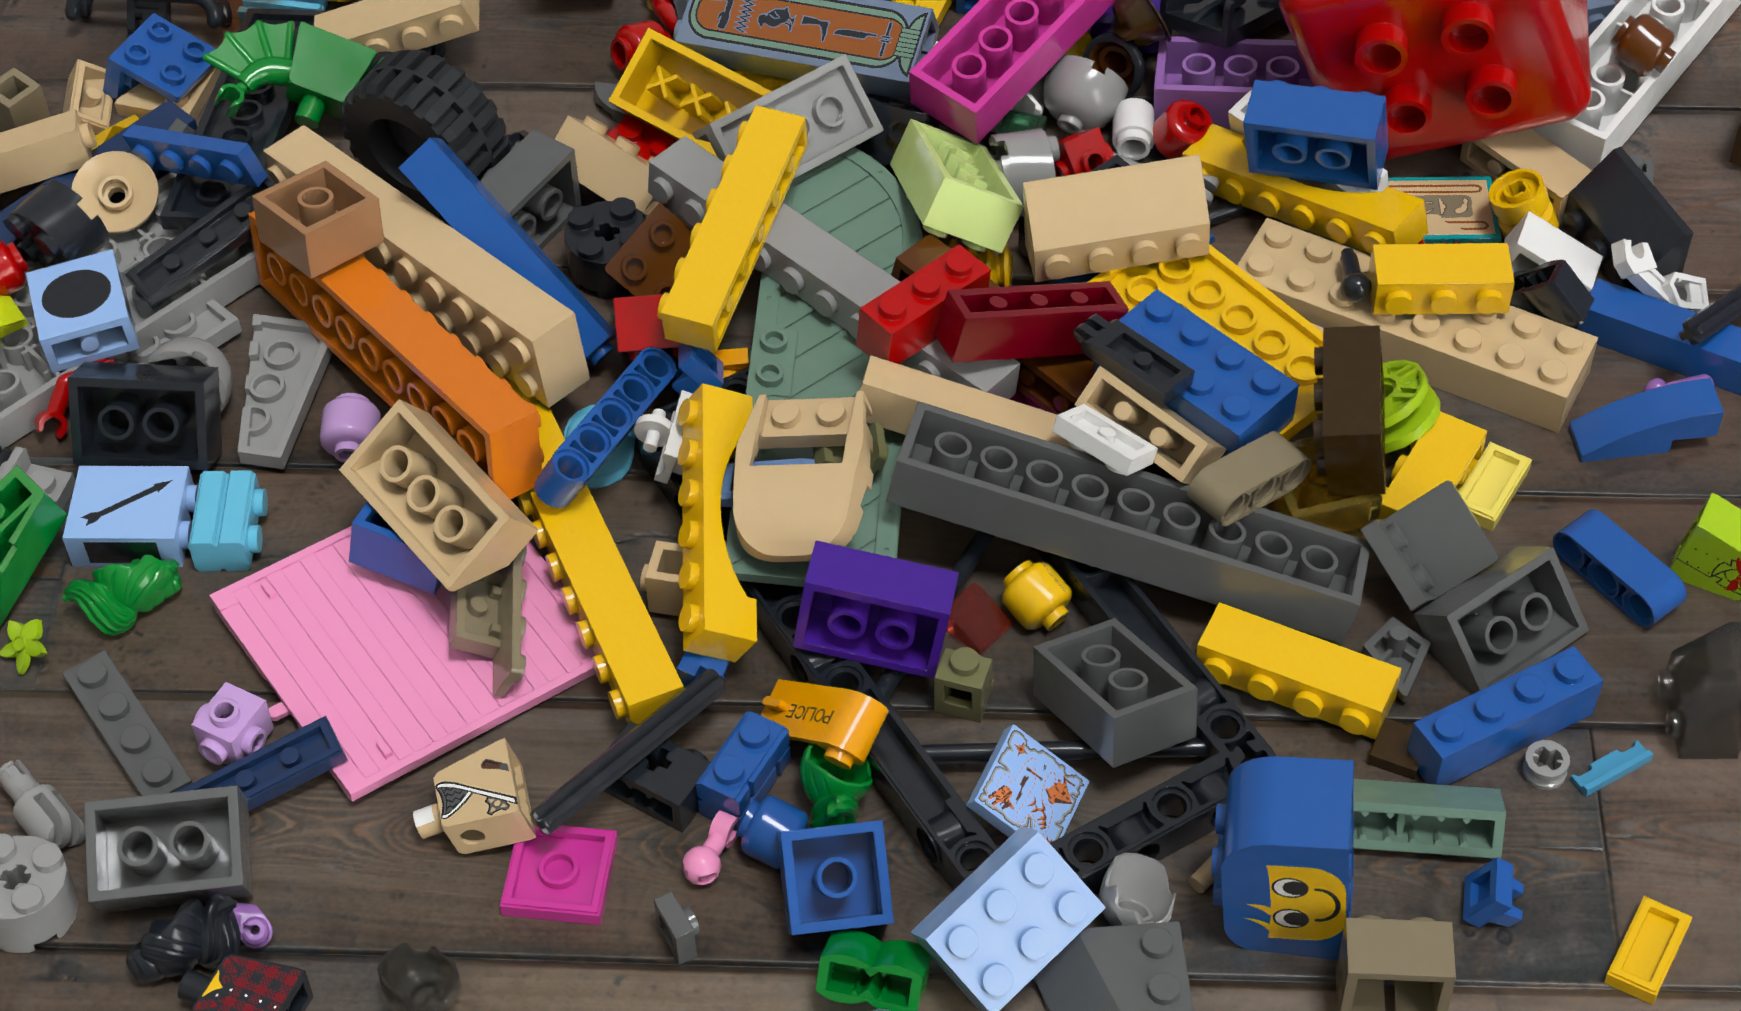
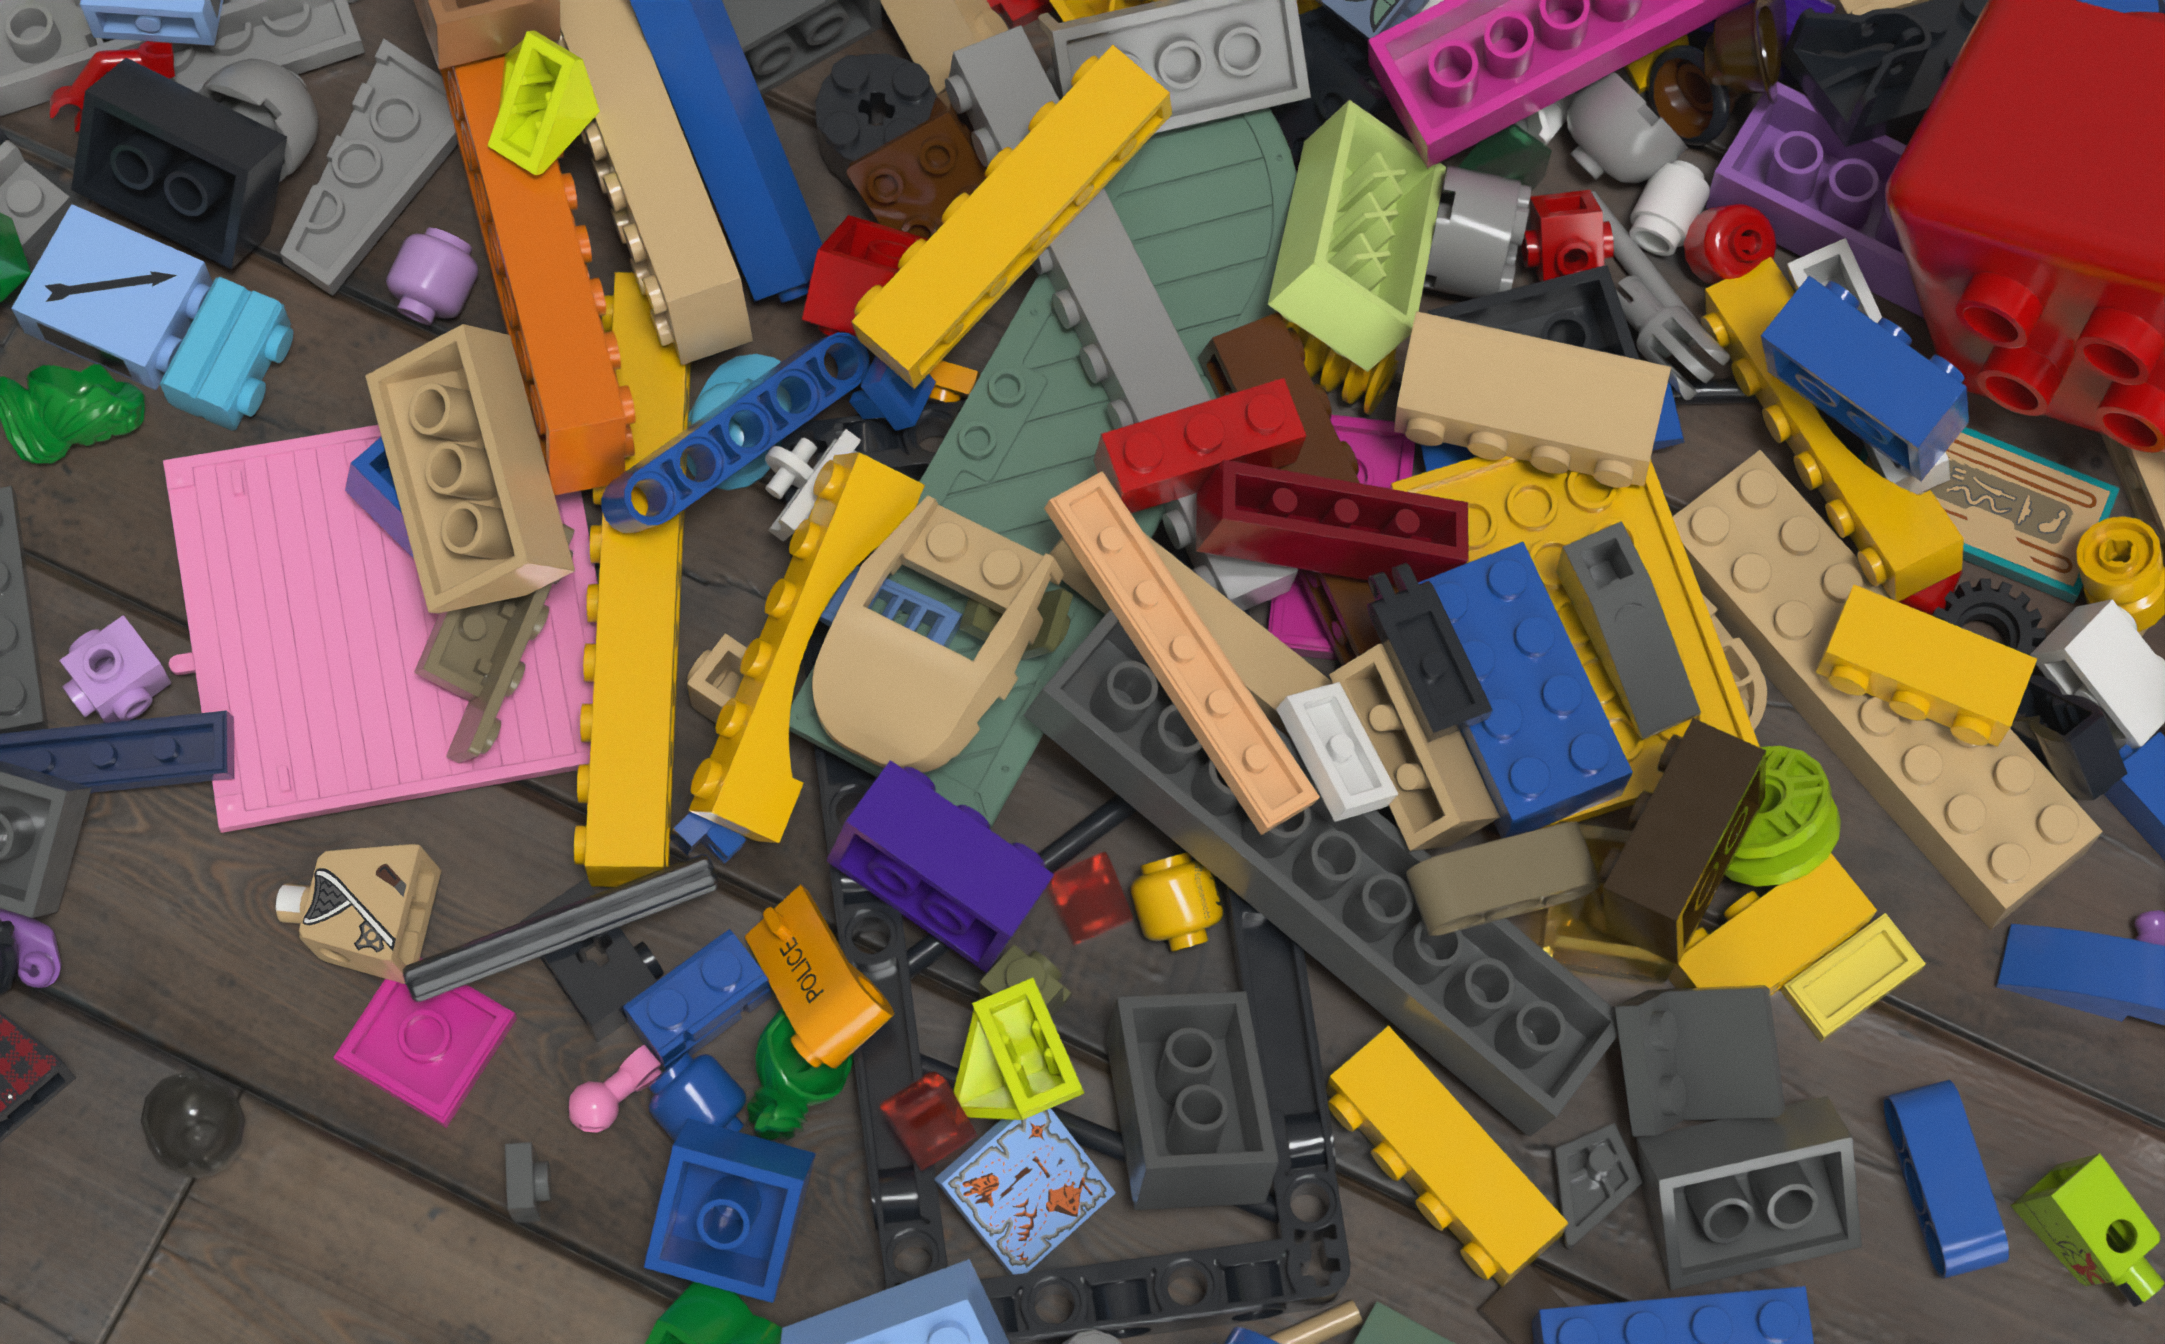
camera: 20 degrees right, 20 degrees up
(391, 262) = (542, 103): none -> neon yellow slope
(944, 769) = (928, 1119): none -> clear red slope
(976, 416) = (1181, 653): none -> light nougat tile
(982, 707) = (1014, 1058): none -> neon yellow slope
(1246, 315) = (1628, 628): none -> dark grey slope
(1355, 285) = (1810, 622): black piece -> none

